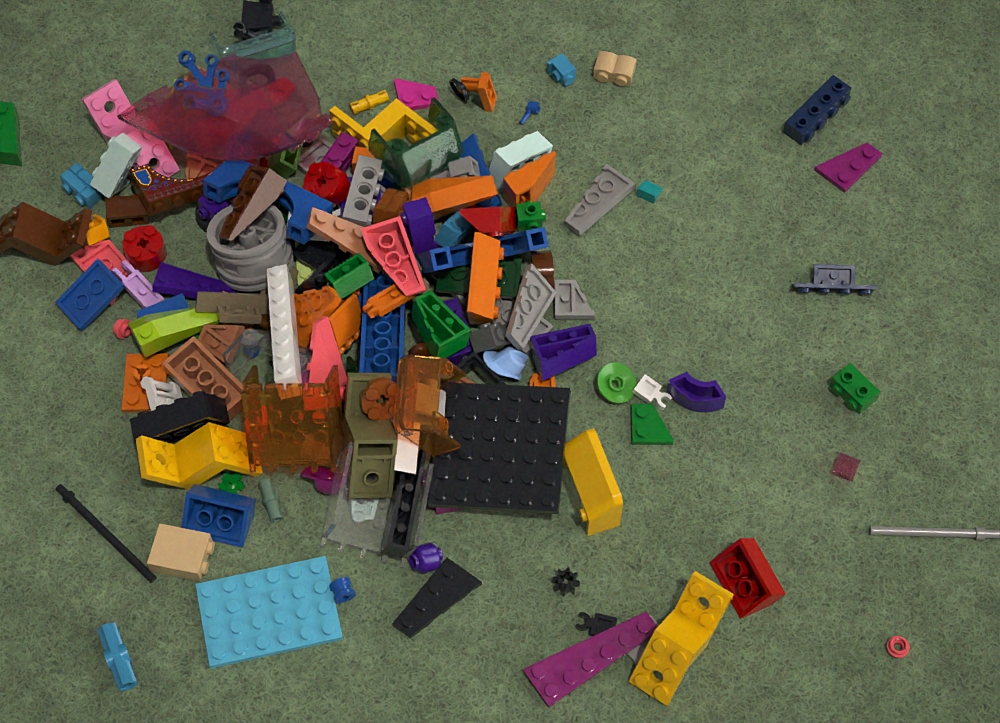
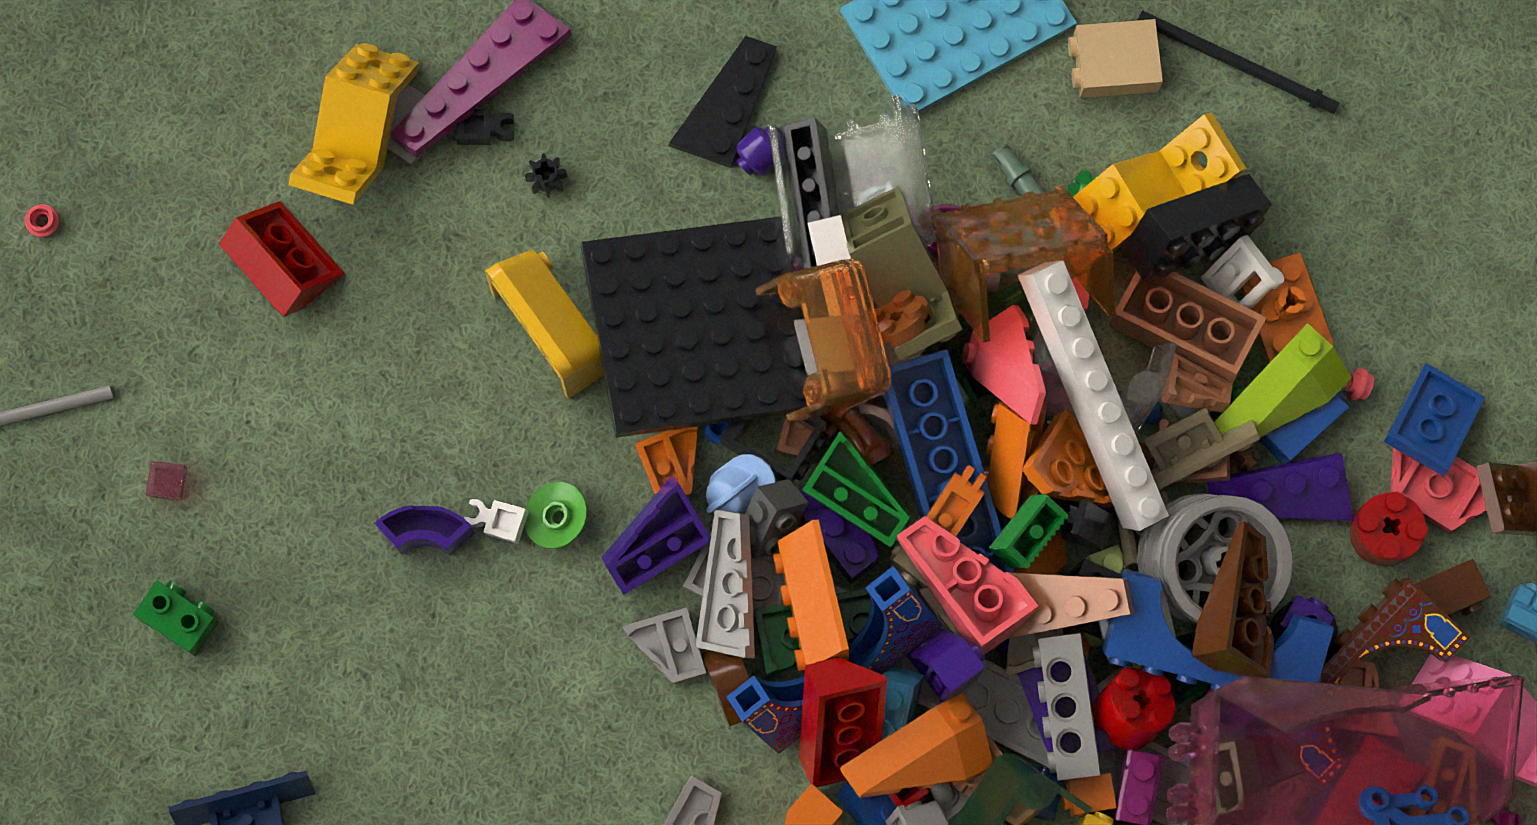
camera: 160 degrees right, 15 degrees up
(97, 230) = (1478, 536): light orange brick -> none
(115, 165) = (1496, 635): light aqua wedge -> none
(137, 286) = (1367, 456): lavender hinge -> none
(218, 513) = (1086, 130): blue slope -> none
(342, 590) = (863, 71): blue wheel -> none
(390, 205) = (1012, 704): dark orange brick -> none
(529, 215) = (791, 770): green brick -> none
(648, 426) = (489, 463): green wing -> none

